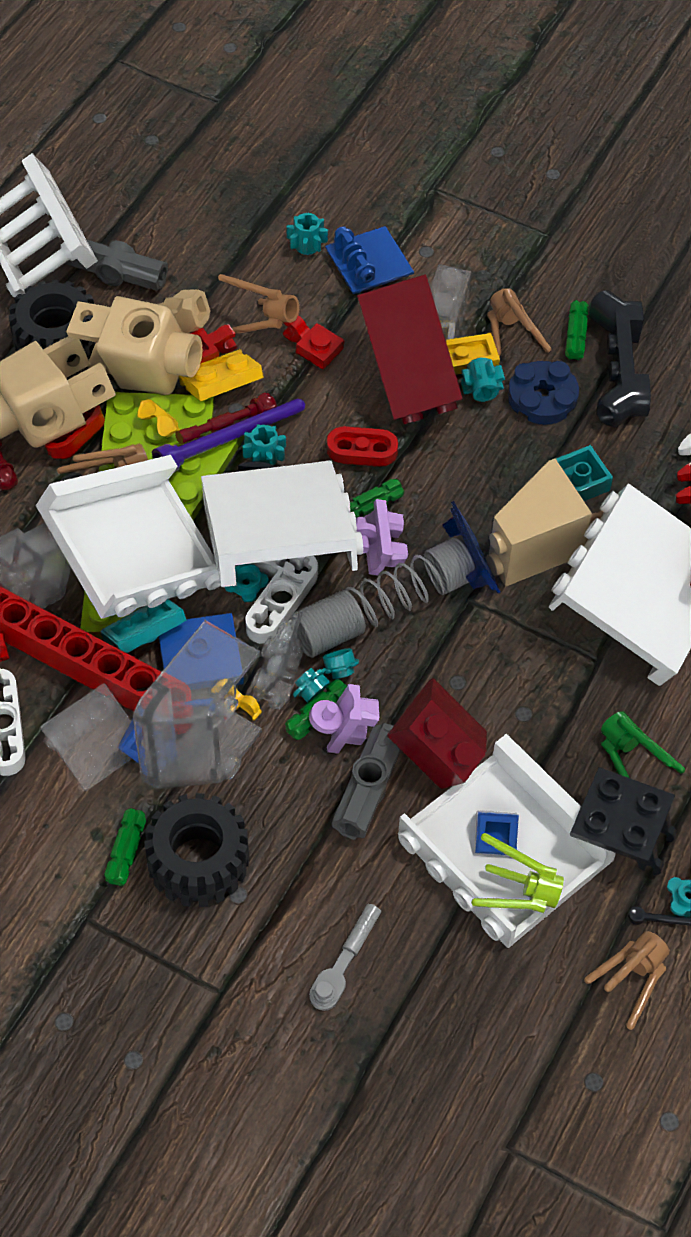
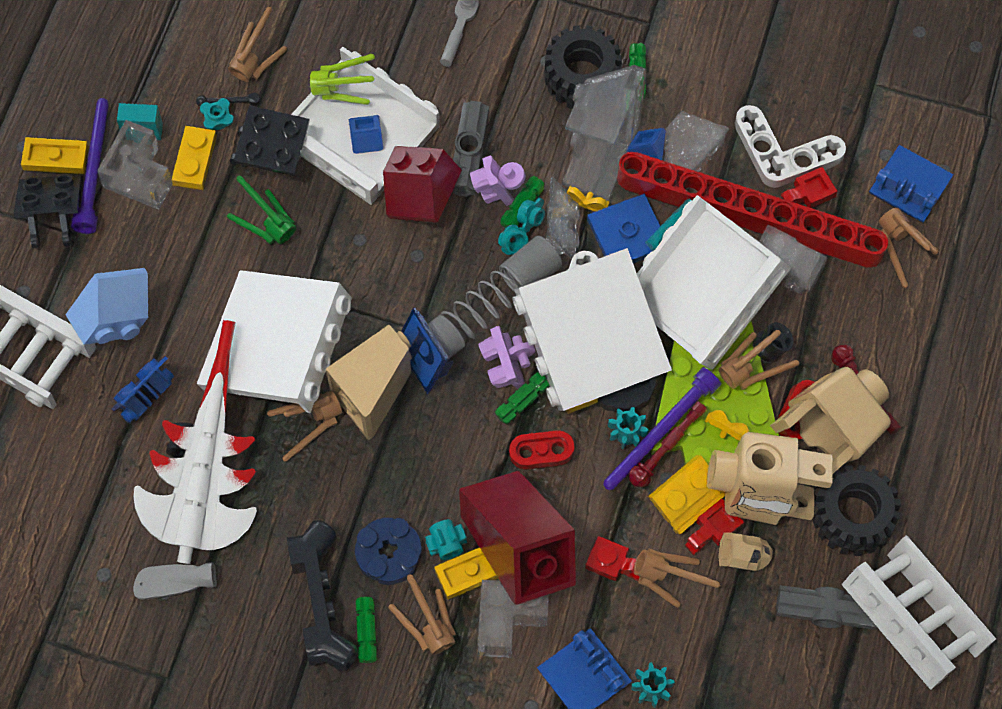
camera: 170 degrees right, 10 degrees up
(586, 472) = (341, 463): teal piece -> none

